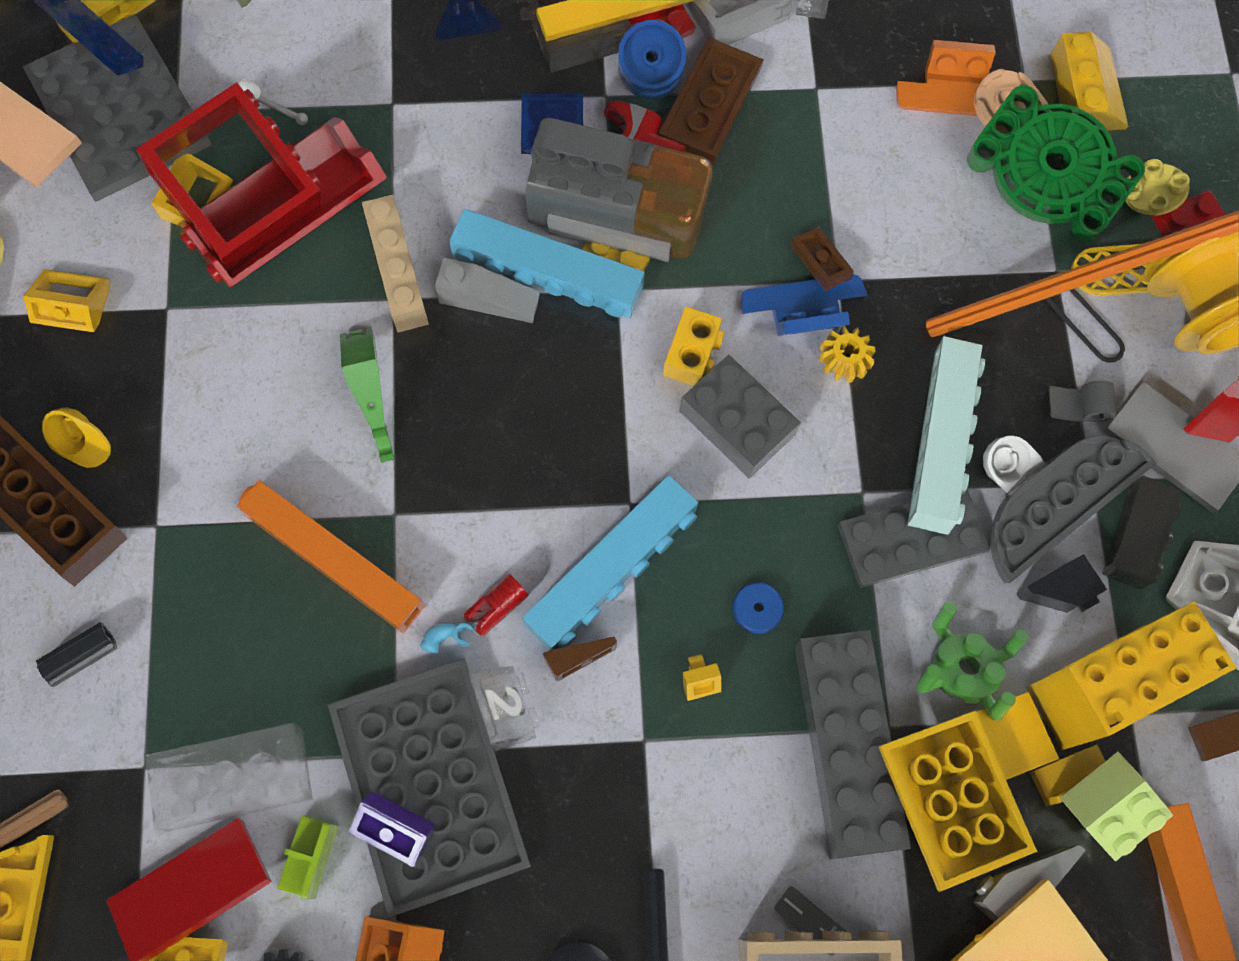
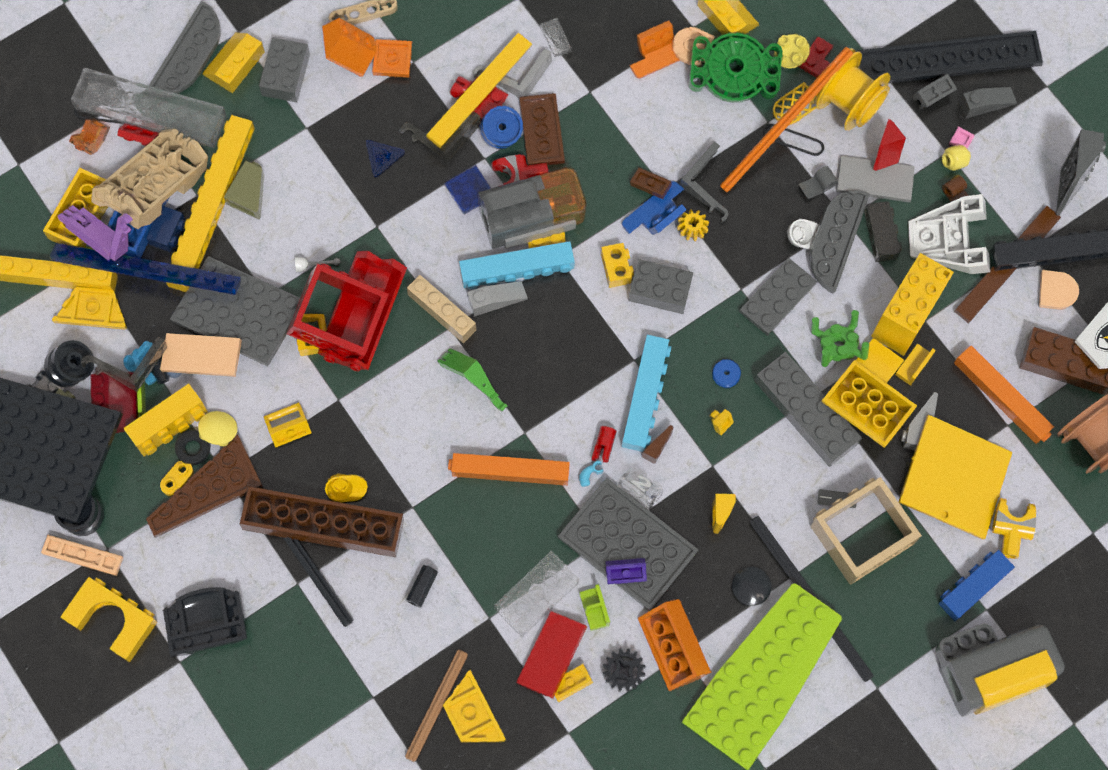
camera: 30 degrees left, 0 degrees up
(607, 825) = (721, 509): none -> yellow tile
(881, 300) = (696, 190): none -> dark grey hinge
(946, 436) = (764, 237): light aqua brick -> none
(1066, 587) = (862, 278): black slope -> none
(1117, 806) = (940, 365): yellowish green brick -> none

